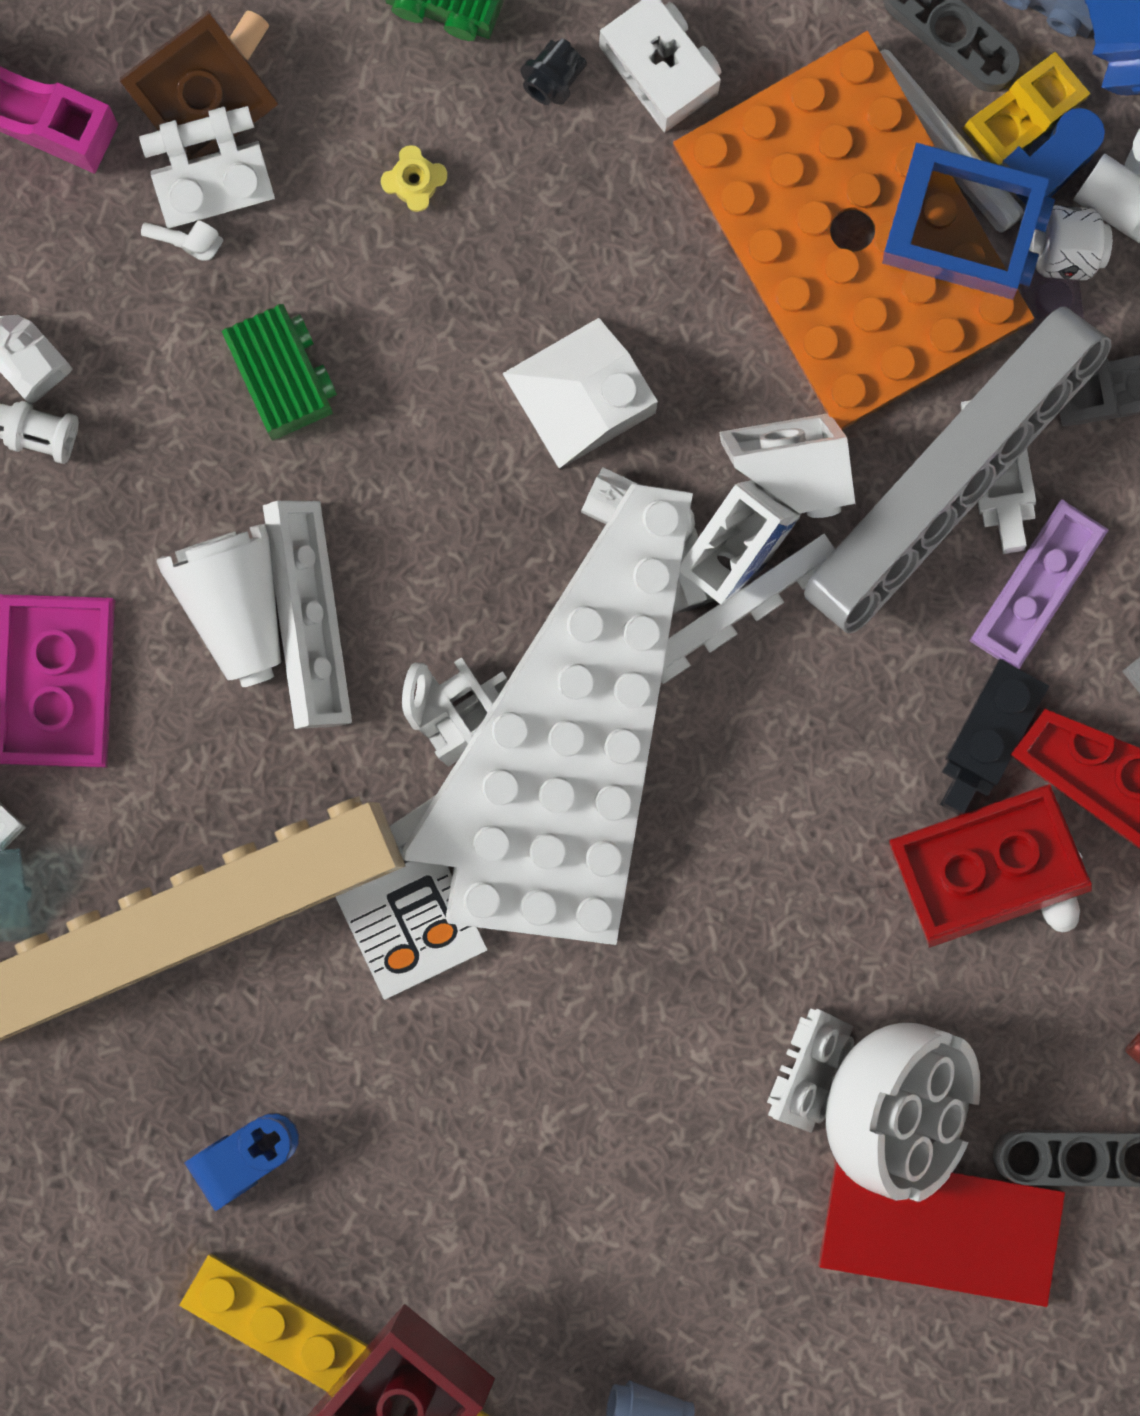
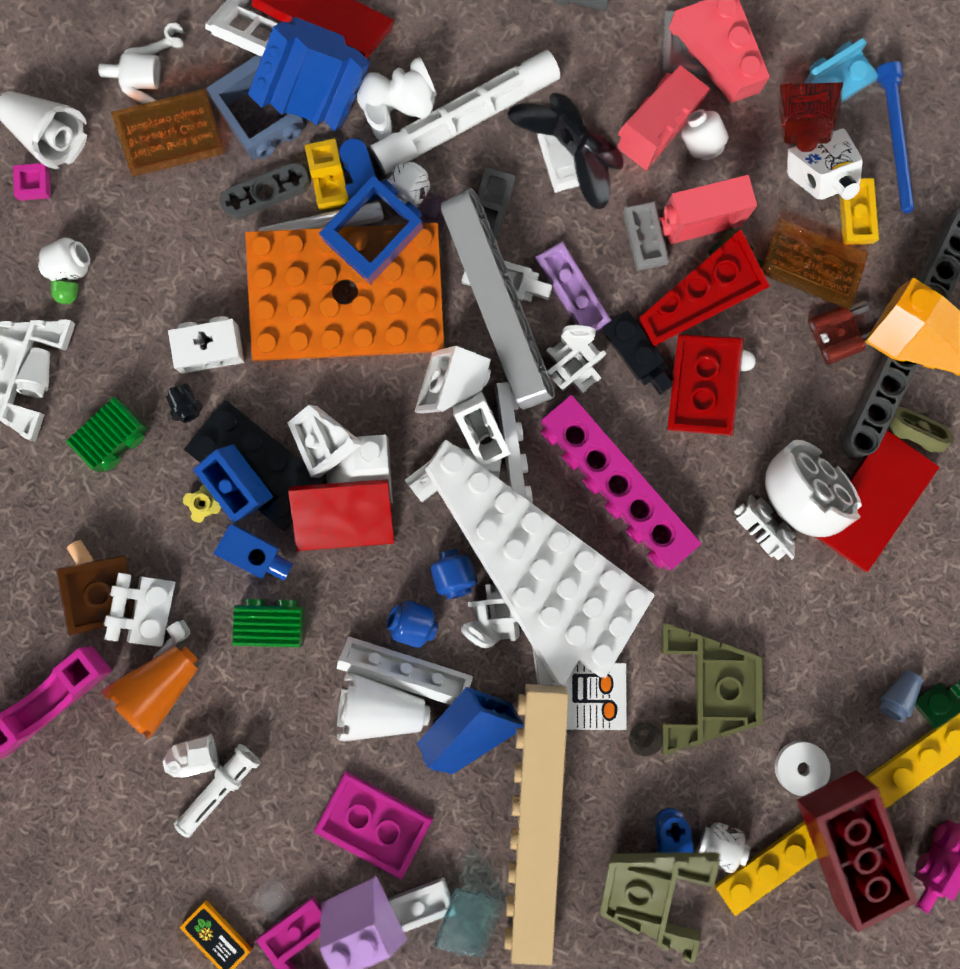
camera: 65 degrees left, 0 degrees up
(100, 246) = (152, 689): none -> orange cone
(147, 1136) = (642, 890): none -> olive wing
(265, 751) = (468, 731): none -> blue slope
(276, 1236) = (727, 842): none -> white head
(373, 264) = (237, 548): none -> blue torso
(384, 1037) = (645, 739): none -> clear smoke plate
(386, 588) = (412, 624): none -> blue head
(467, 207) = (233, 483): none -> blue brick
(474, 1285) = (817, 767): none -> white piece
(493, 614) = (453, 574): none -> blue head
(501, 398) = (341, 515): none -> red tile
(512, 229) = (265, 455): none -> black plate
(523, 1126) = (725, 690): none -> olive wing
(600, 308) = (321, 440): none -> white wing
(832, 675) = (679, 540): none -> dark pink brick
(952, 626) = (575, 340): none -> white piece
(1091, 1246) = (921, 430): none -> olive plate

